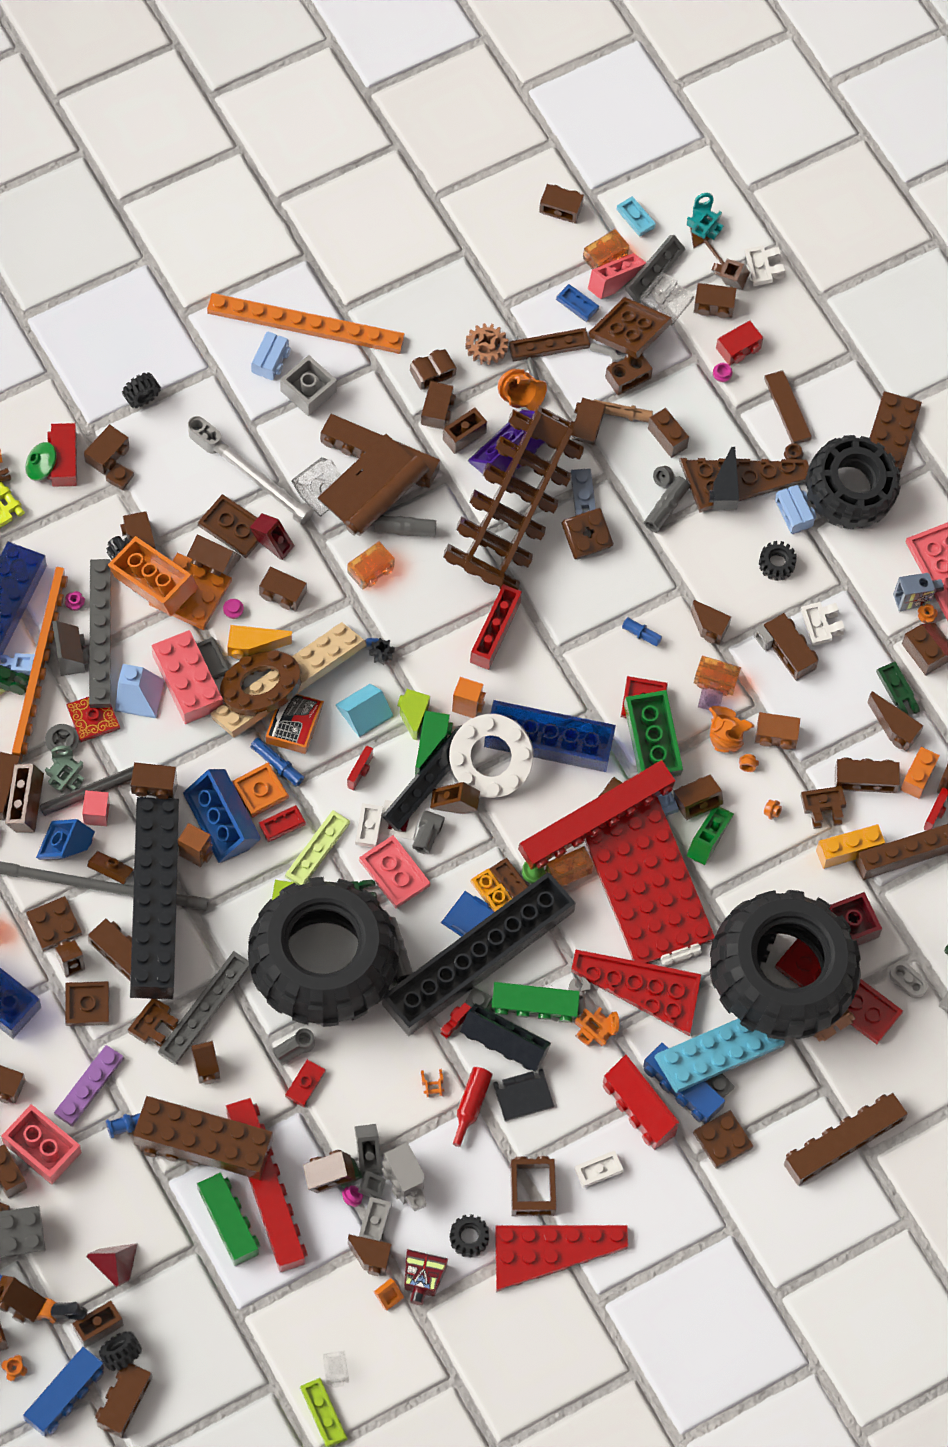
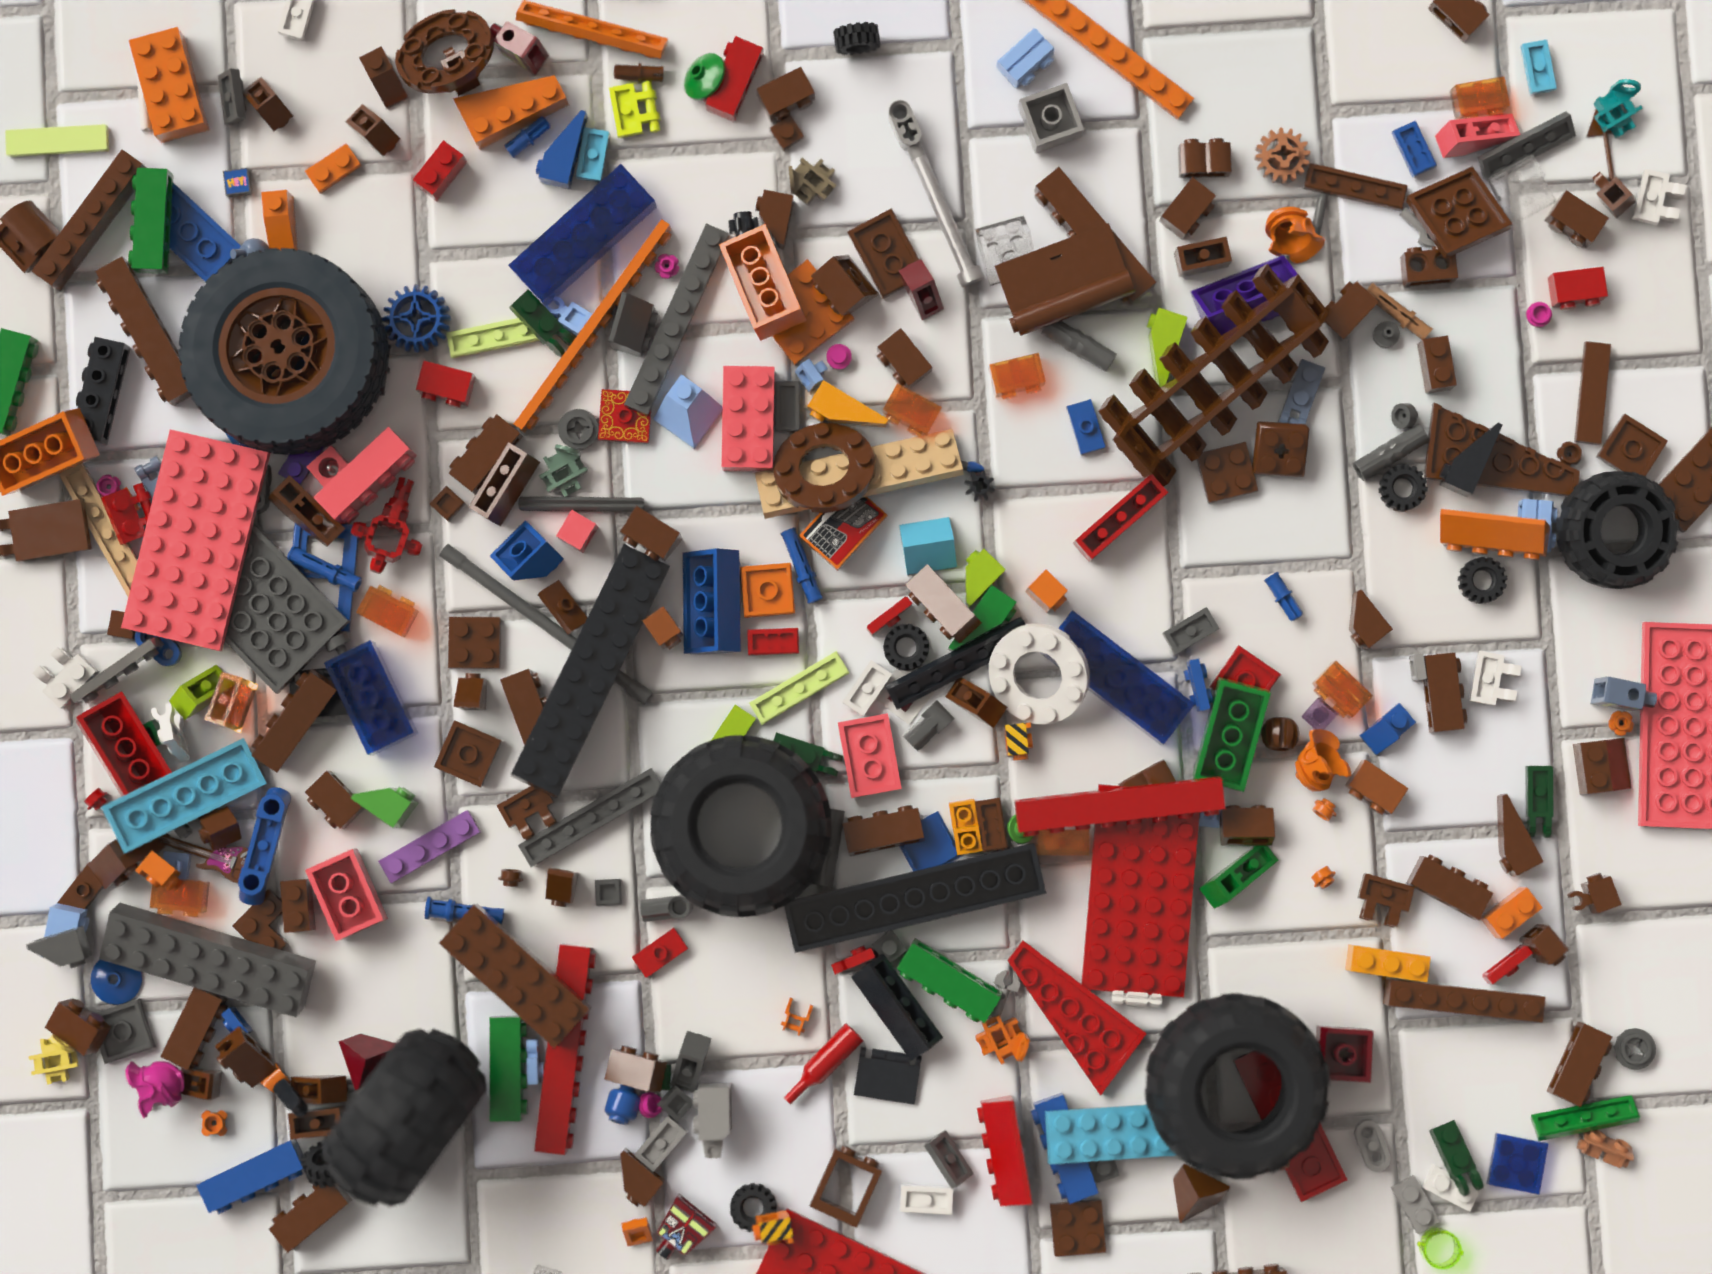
camera: 30 degrees right, 20 degrees up
(42, 1062) = (388, 804): none -> bright green slope
(91, 1296) = (321, 1088): none -> reddish brown slope
(154, 503) = (811, 185): none -> dark tan piece
(163, 1078) = (510, 877): none -> reddish brown plate
(168, 1265) = (404, 1117): none -> black tyre
(218, 628) = (811, 374): none -> light blue tile
(243, 1057) = (608, 892): none -> dark grey tile
(250, 1209) = (535, 1068): none -> light blue plate
(306, 620) = (911, 410): none -> clear orange brick
(331, 1205) = (622, 1105): none -> blue head
(383, 772) = (895, 658): none -> black tyre
(396, 738) = (942, 604): none -> brick
(432, 918) = (883, 830): none -> reddish brown brick
(439, 580) = (1085, 427): none -> blue plate
(461, 488) = (1165, 329): none -> lime slope
(493, 1236) = (773, 1228): none -> brick
(499, 812) = (1018, 740): none -> brick
(557, 568) = (1227, 472): none -> reddish brown plate
(587, 683) = (1190, 631): none -> dark grey plate
(600, 1131) = (948, 1159): none -> dark grey plate
(608, 709) = (1196, 674): none -> blue plate
(622, 430) = (1381, 337): none -> dark grey tile
(688, 513) = (1418, 487): none -> black tyre
(689, 723) = (1280, 734): none -> reddish brown piece
(764, 689) = (1387, 729): none -> blue slope
(767, 519) = (1494, 533): none -> orange slope
(797, 1071) = (1196, 1191): none -> reddish brown slope
(832, 425) = (1631, 447): none -> reddish brown plate

